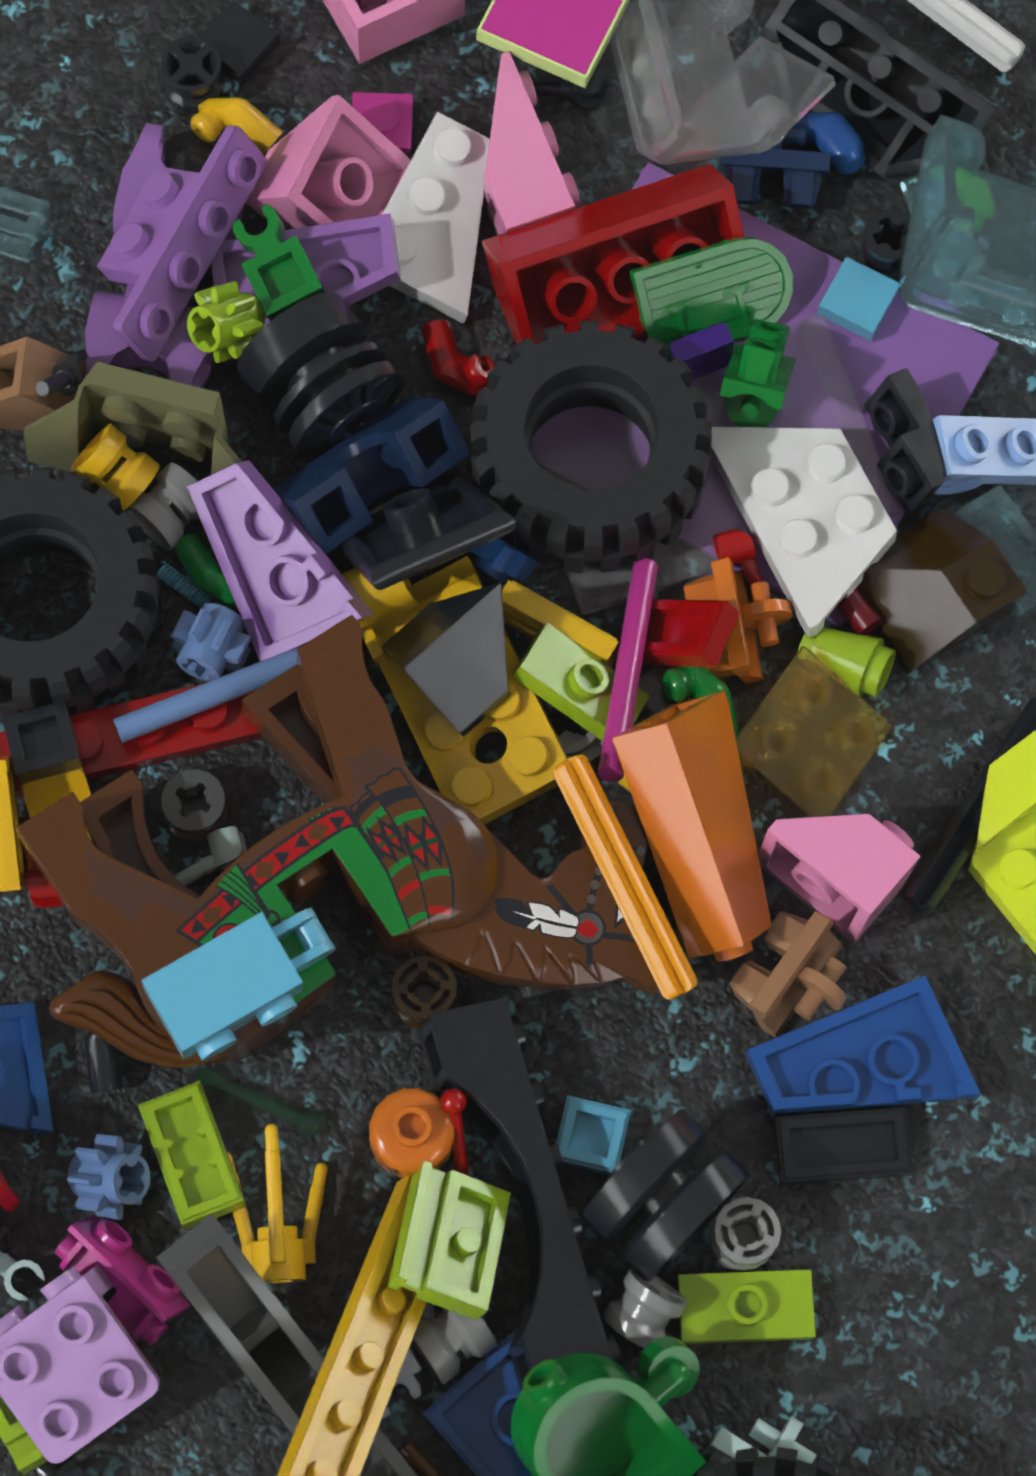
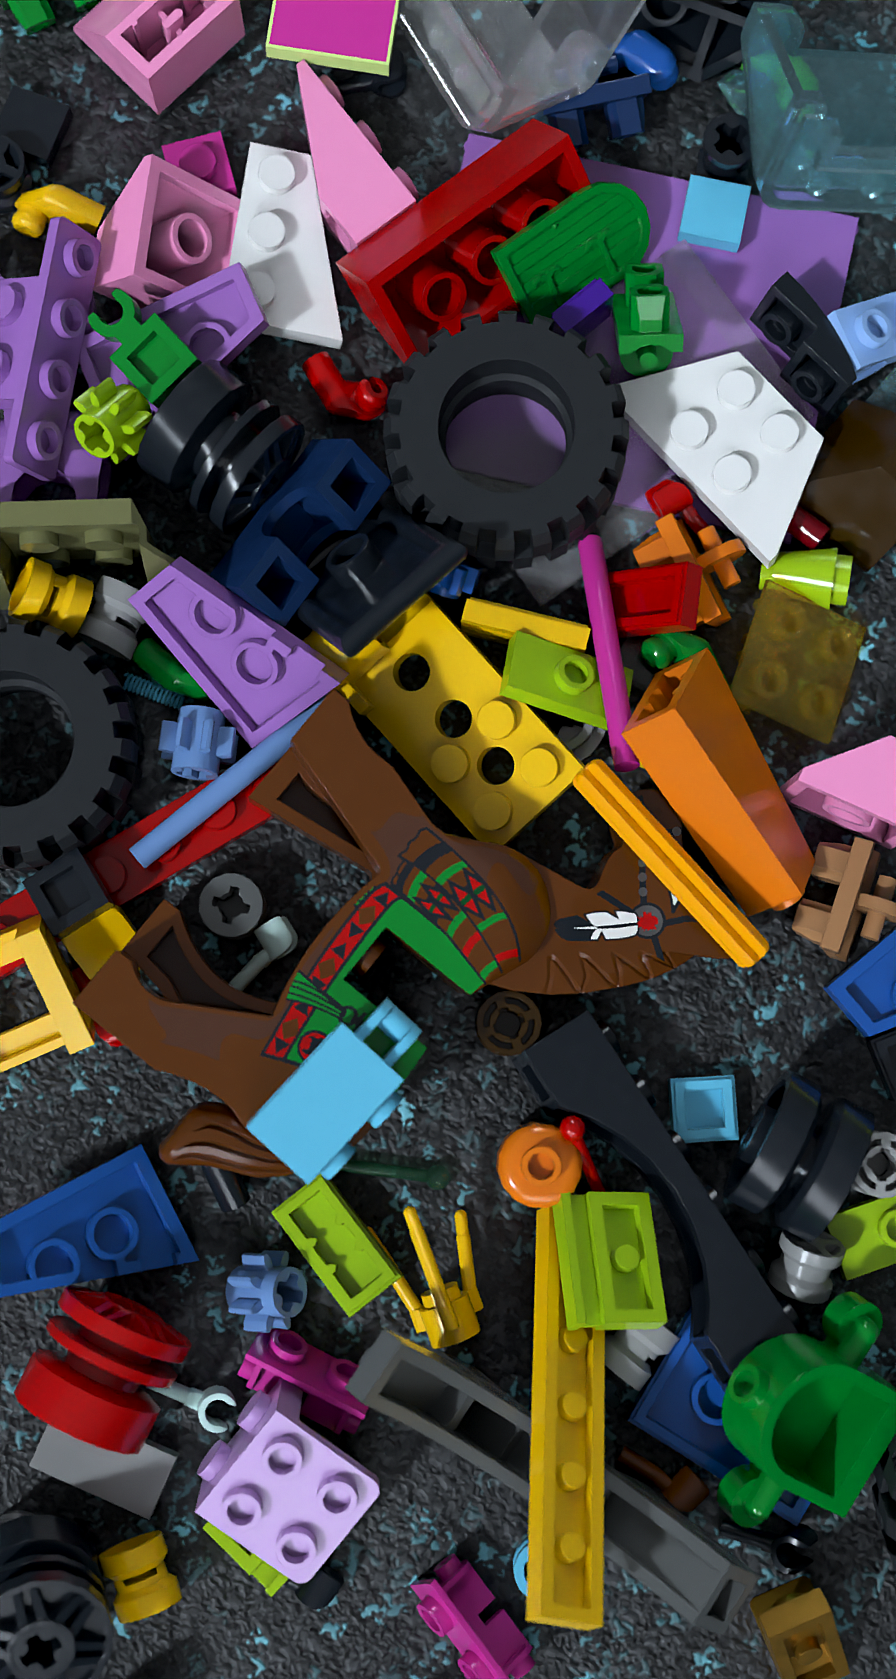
camera: 15 degrees left, 10 degrees up
(457, 655) = (440, 689): black slope -> none

